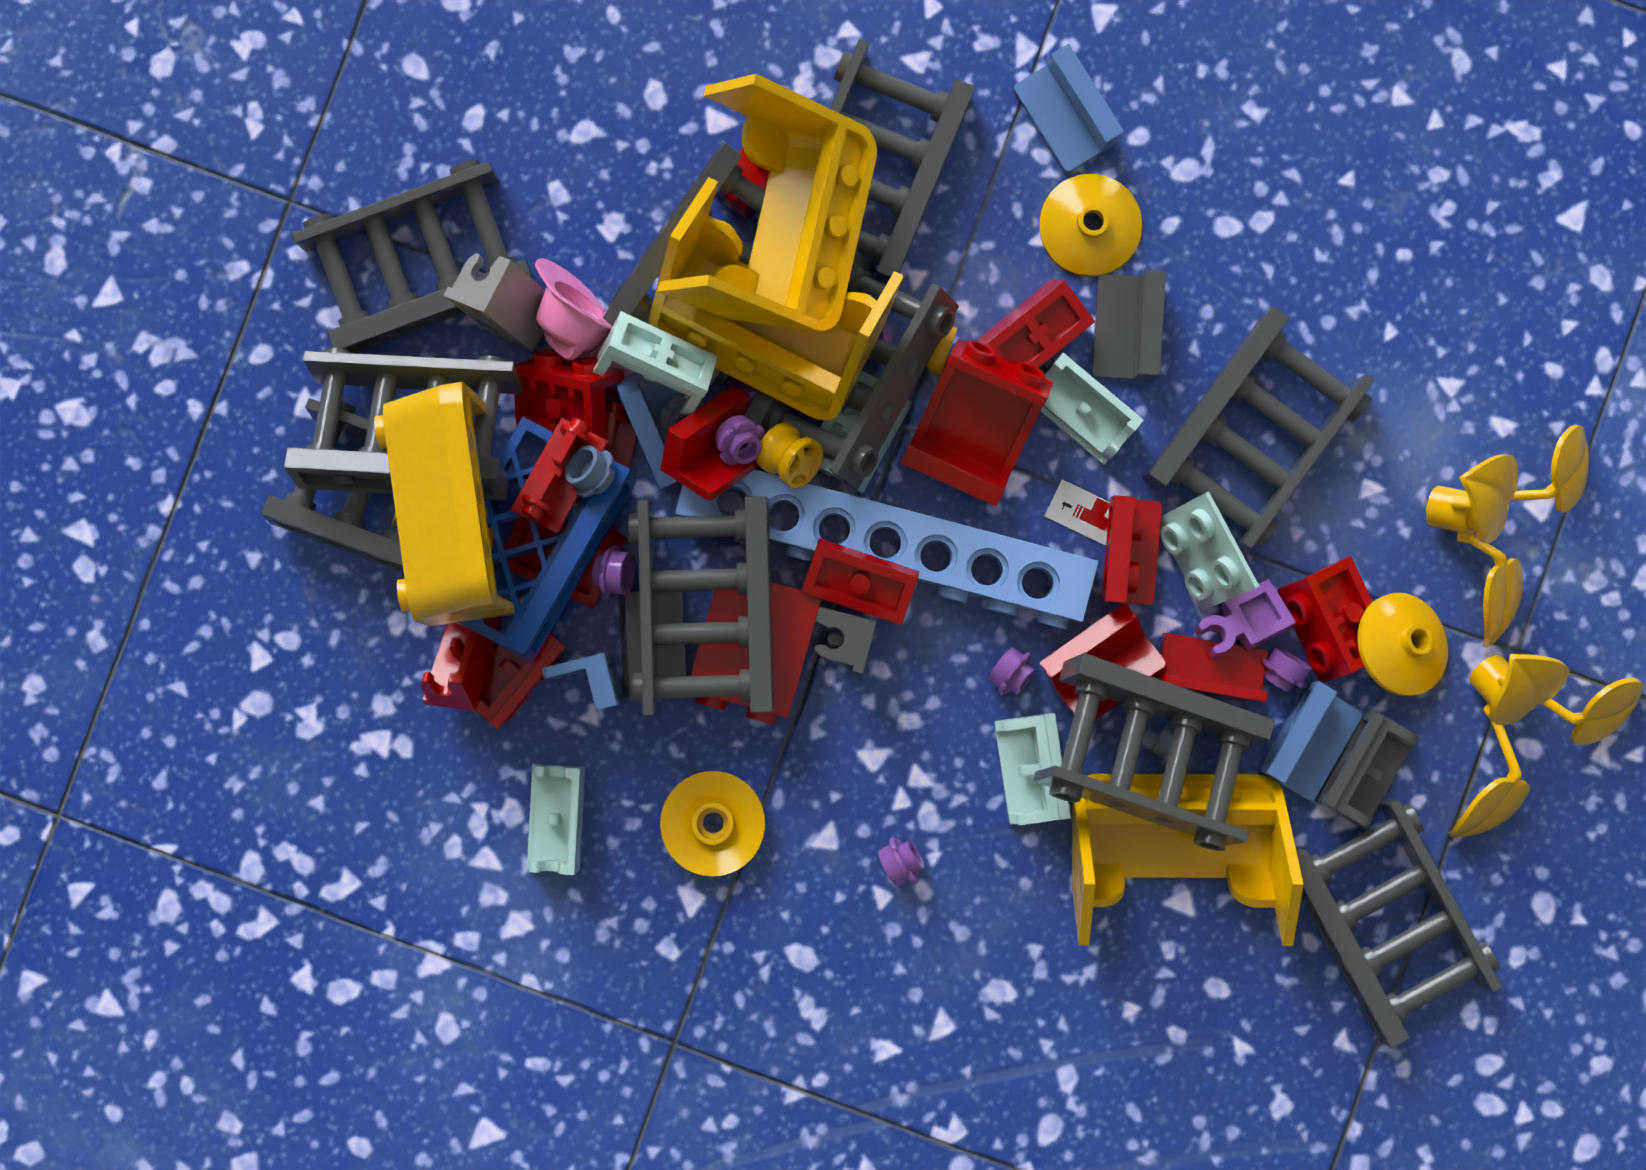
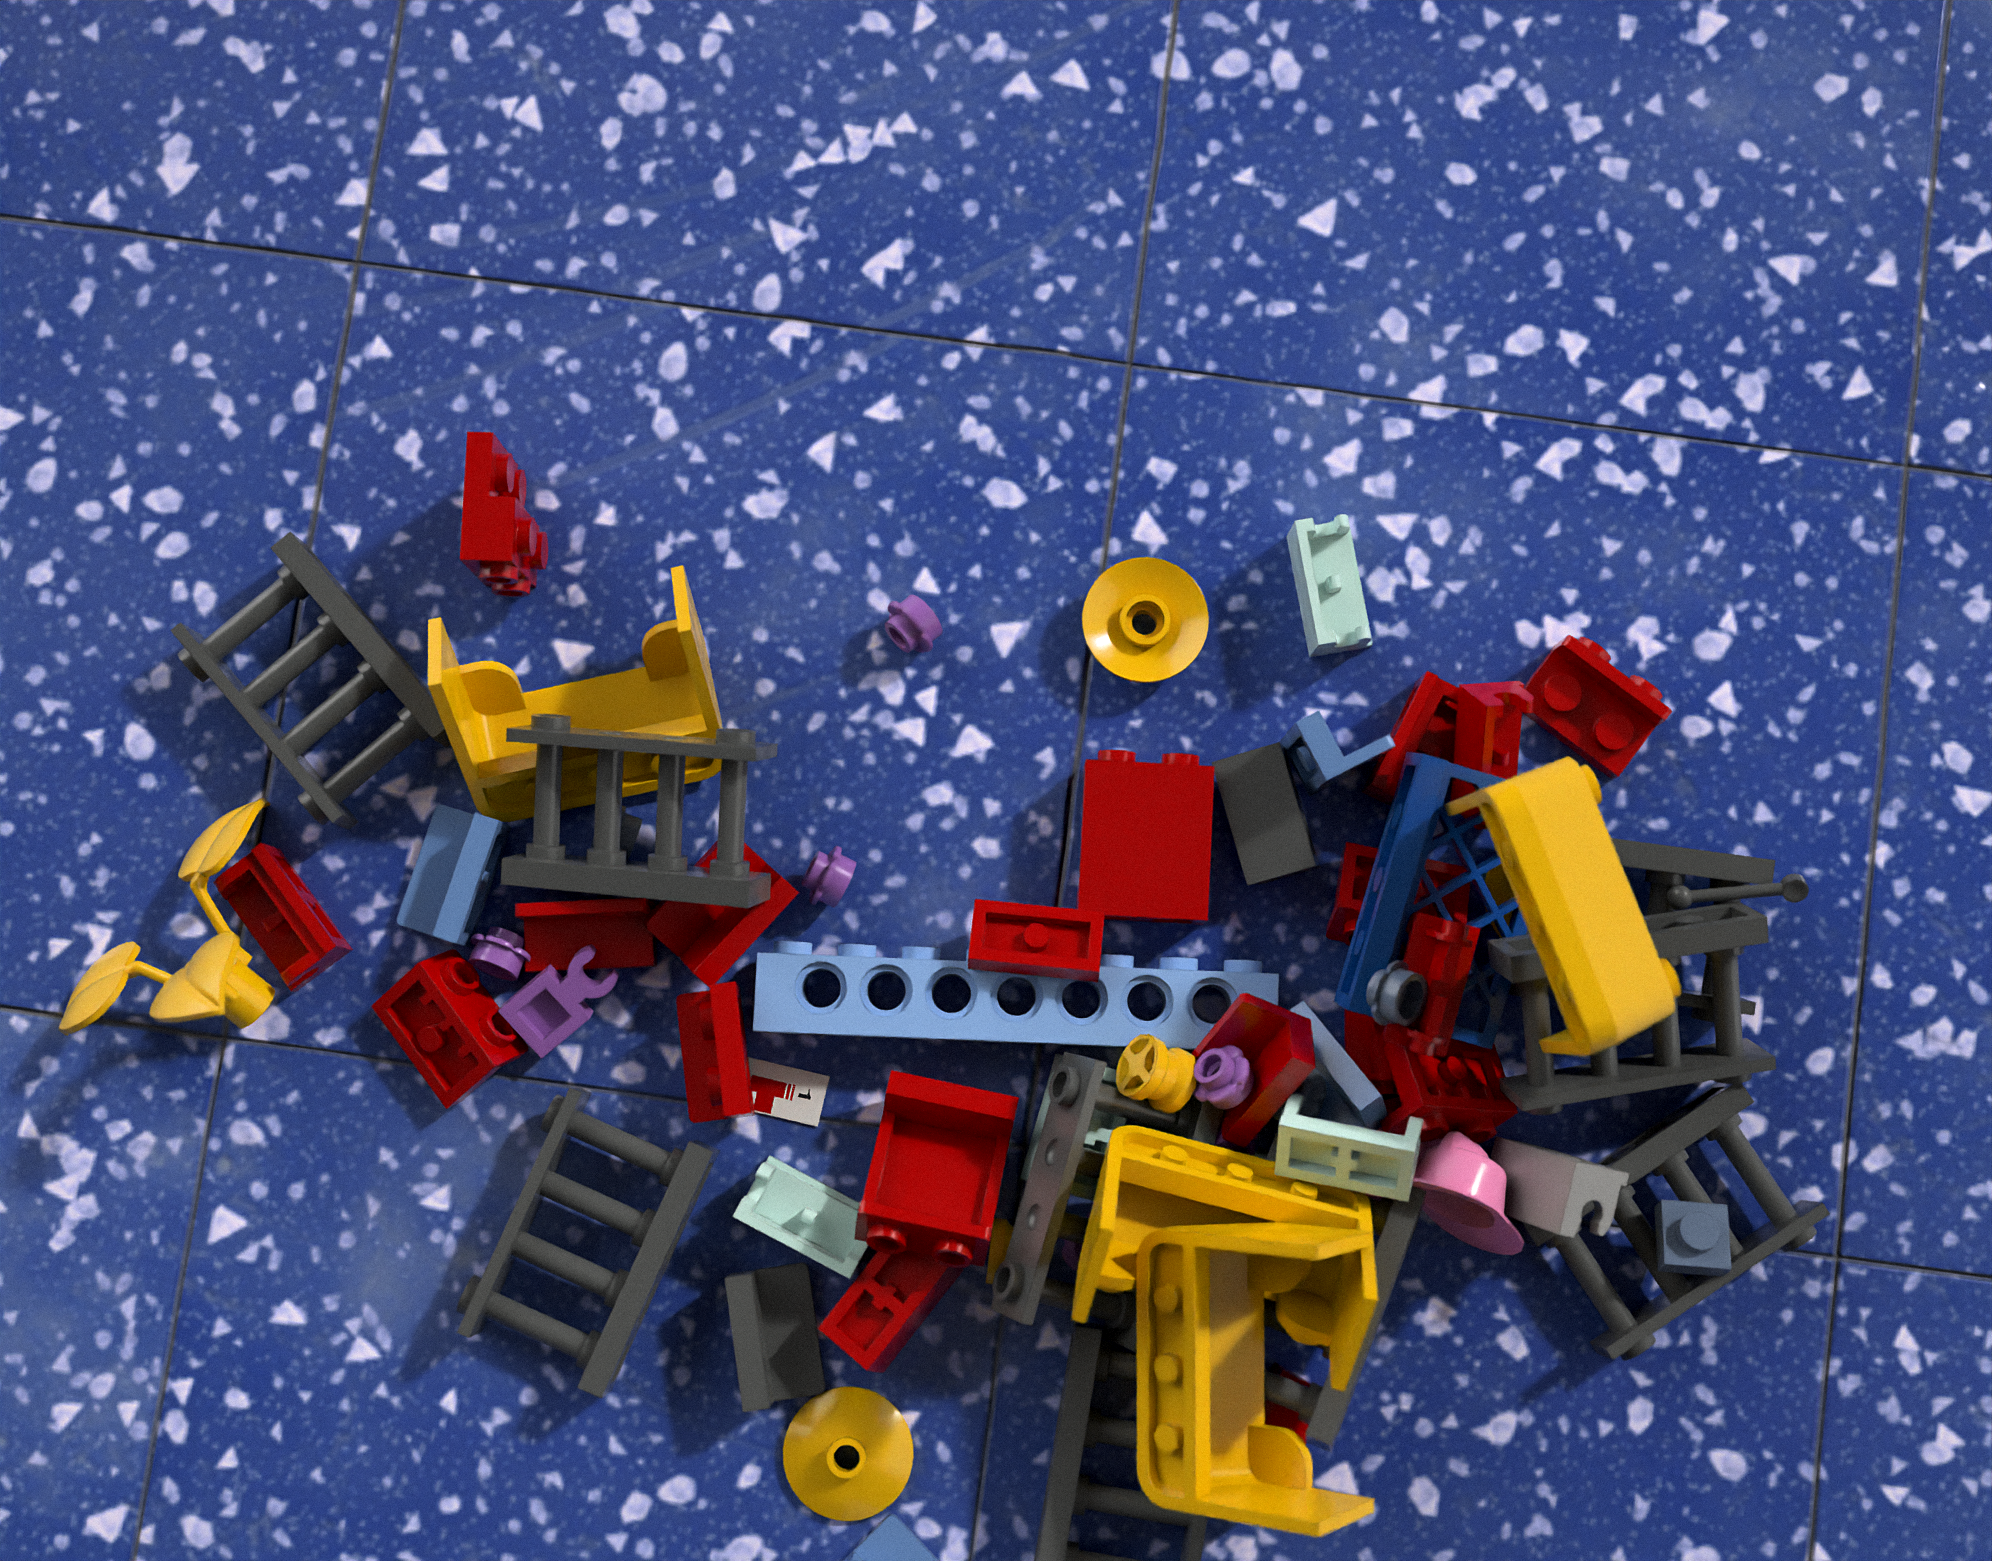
camera: 170 degrees right, 5 degrees down
(253, 489) = (1791, 887): none -> dark grey hinge
(368, 674) = (1594, 704): none -> red bracket
(403, 238) = (1692, 1238): none -> sand blue plate
(614, 572) = (1334, 885): medium lavender plate -> none
(748, 579) = (1171, 911): dark grey fence -> none
(853, 643) = (1033, 867): dark grey hinge -> none
(1024, 748) = (789, 786): light aqua hinge -> none
(1206, 552) = (624, 1071): light aqua hinge -> none
(1222, 1005) = (497, 532): none -> red plate
(1366, 768) = (381, 855): dark grey hinge -> none
(1388, 648) = (382, 1011): yellow dish -> none
(1452, 738) = (282, 915): none -> red hinge
(1484, 511) = (291, 1200): yellow plant -> none

